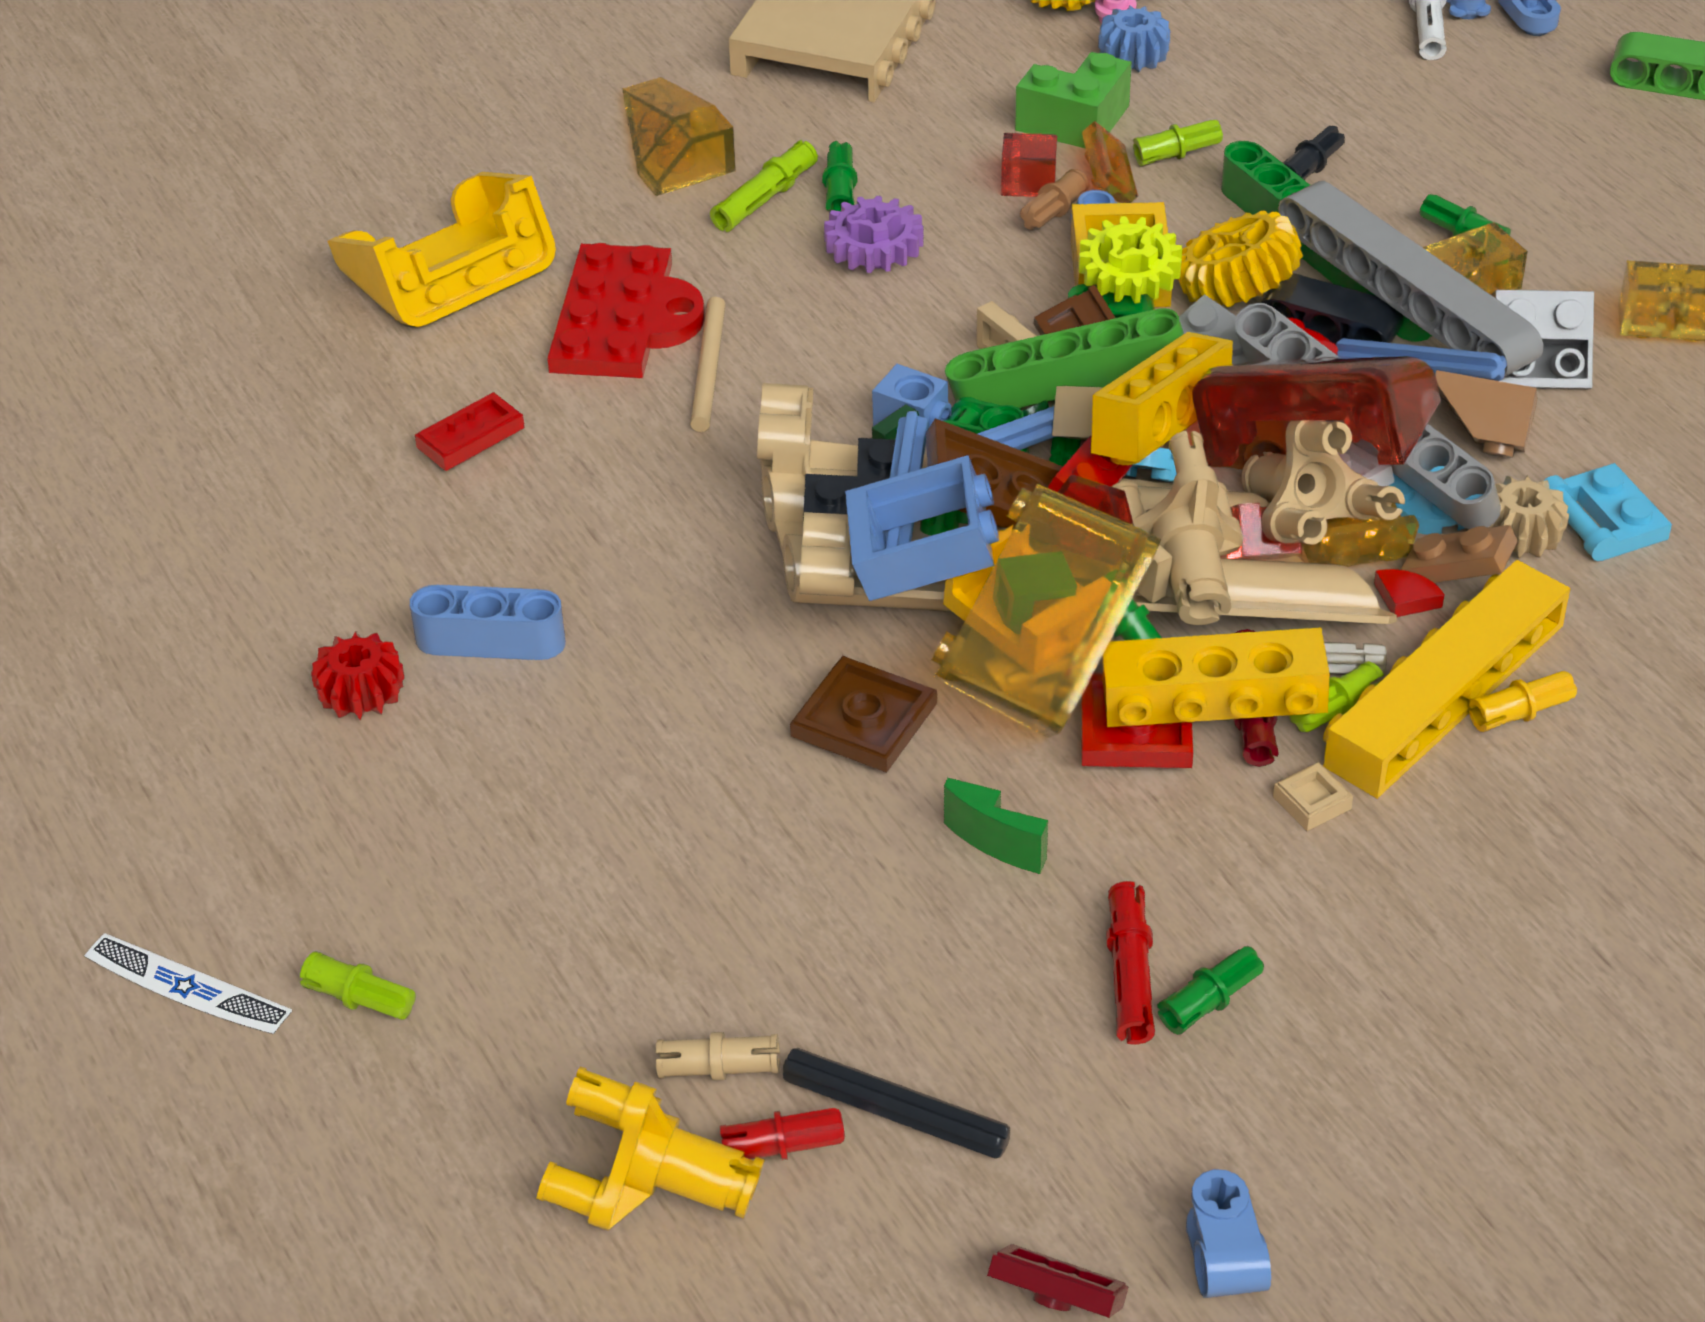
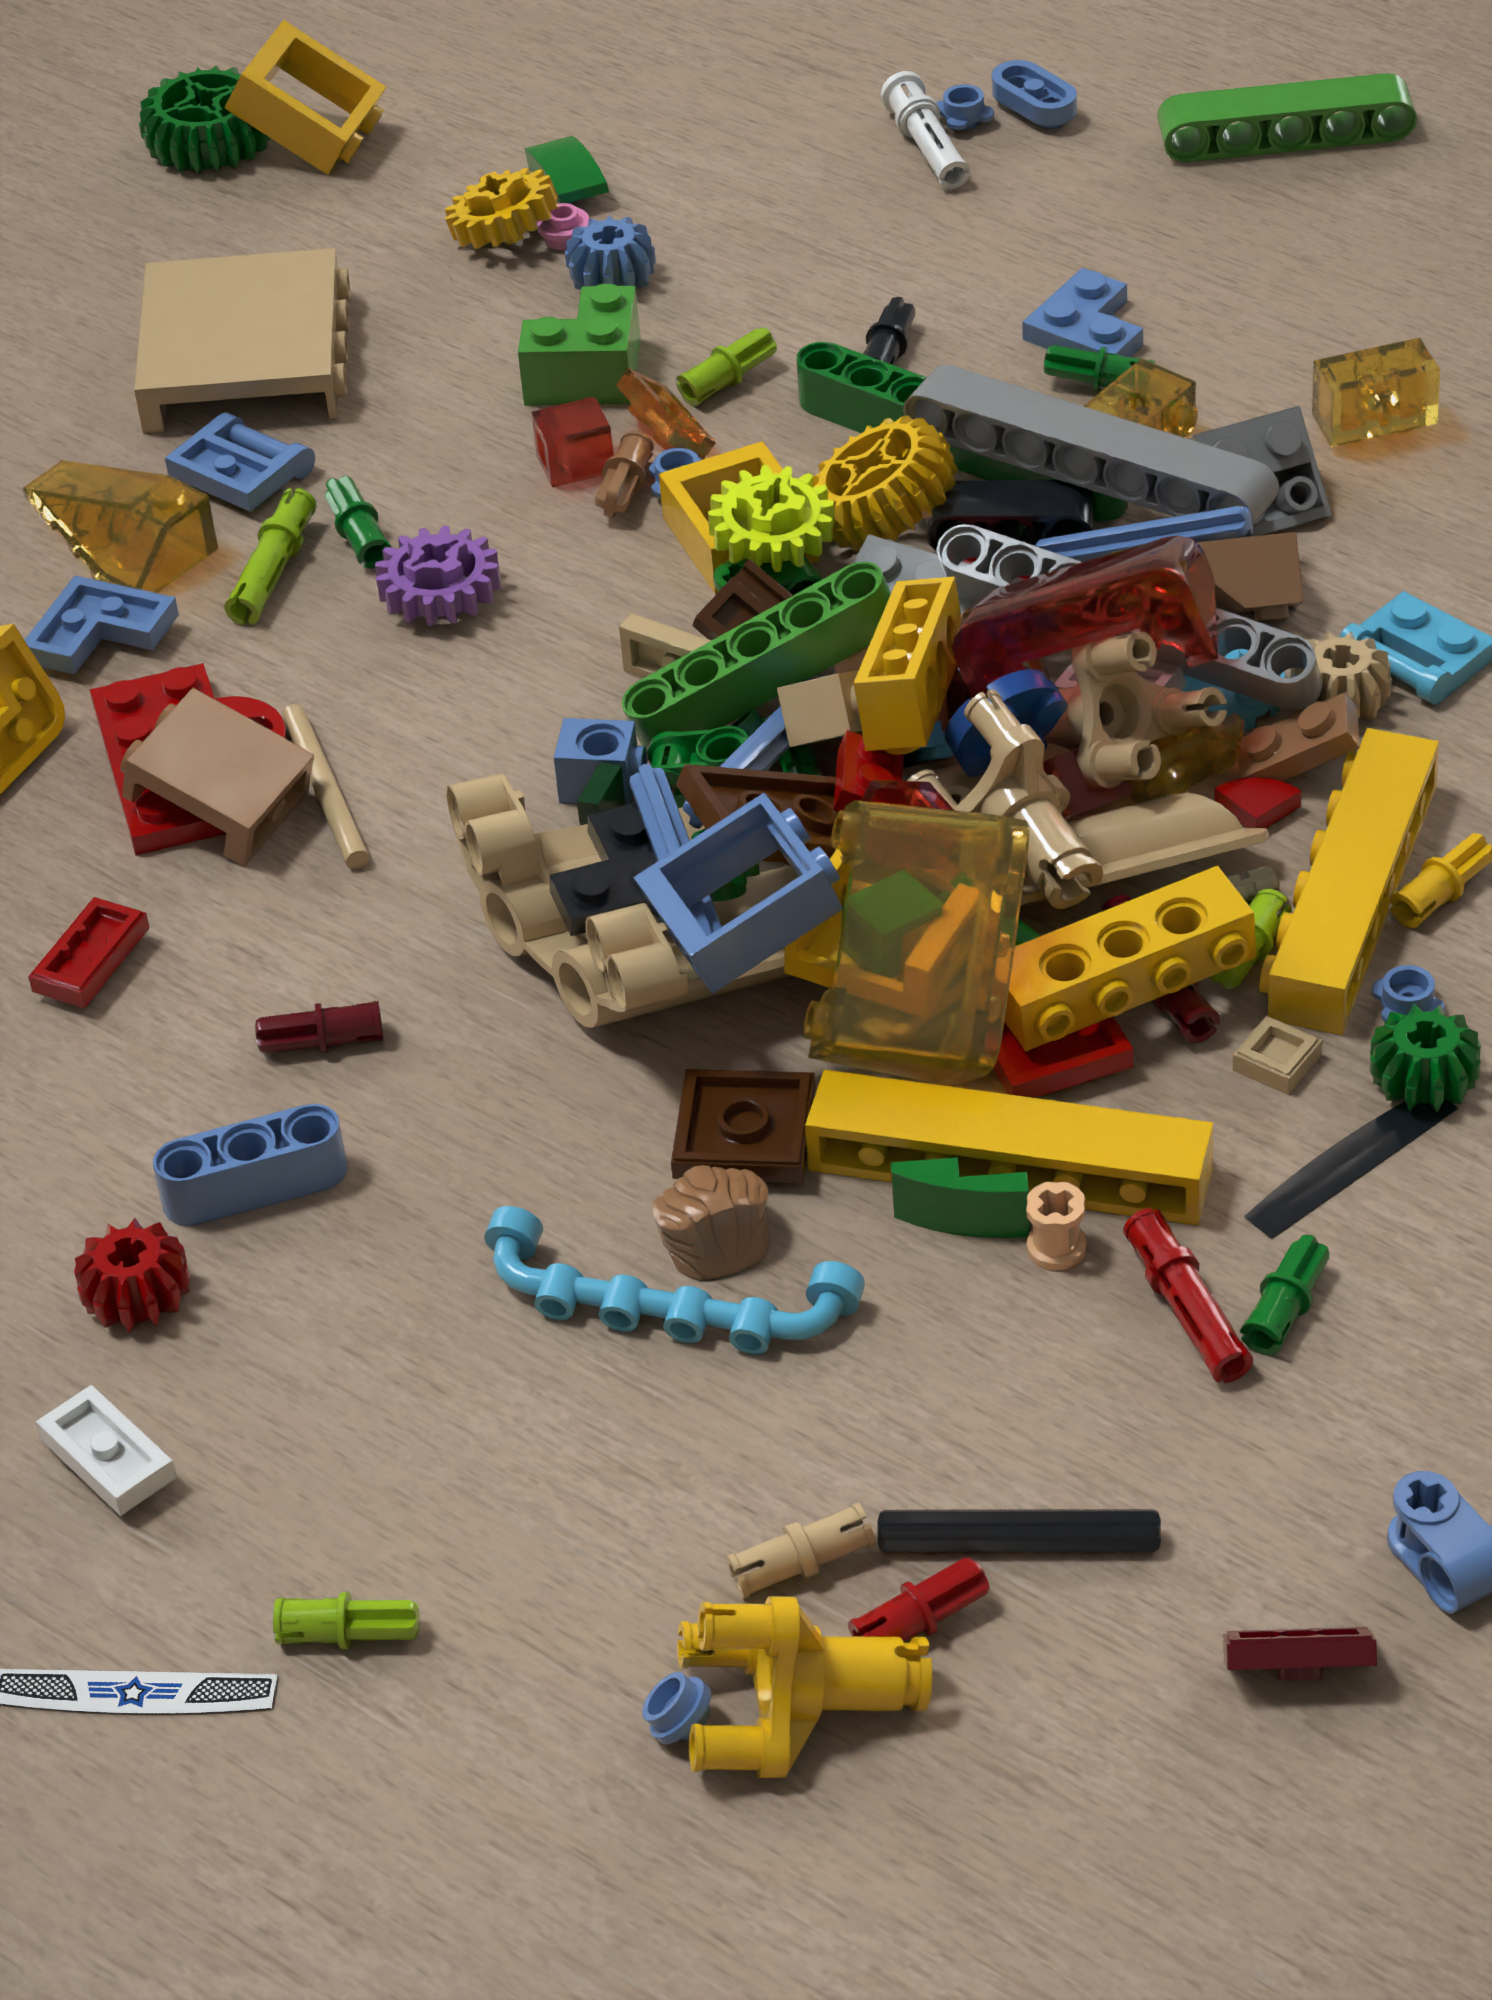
camera: 20 degrees left, 0 degrees up
(265, 798) = (106, 1450): none -> white plate
(555, 1142) = (676, 1706): none -> medium blue plate
(599, 538) = (320, 1028): none -> dark red axle
(609, 190) = (98, 611): none -> medium blue plate
(629, 329) = (220, 771): none -> medium nougat panel
(698, 815) = (515, 1234): none -> medium azure bar
(773, 120) = (238, 462): none -> medium blue plate
(798, 778) = (714, 1221): none -> medium nougat hair
(1053, 872) = (1056, 1235): none -> light nougat bush
(1085, 807) = (1110, 1154): none -> yellow brick
(1232, 455) = (1029, 698): none -> blue plate
(1327, 900) = (1343, 1165): none -> black sticker
(1427, 837) = (1425, 1057): none -> green gear
(1442, 784) = (1404, 987): none -> medium blue plate
(1476, 182) = (1082, 317): none -> medium blue plate

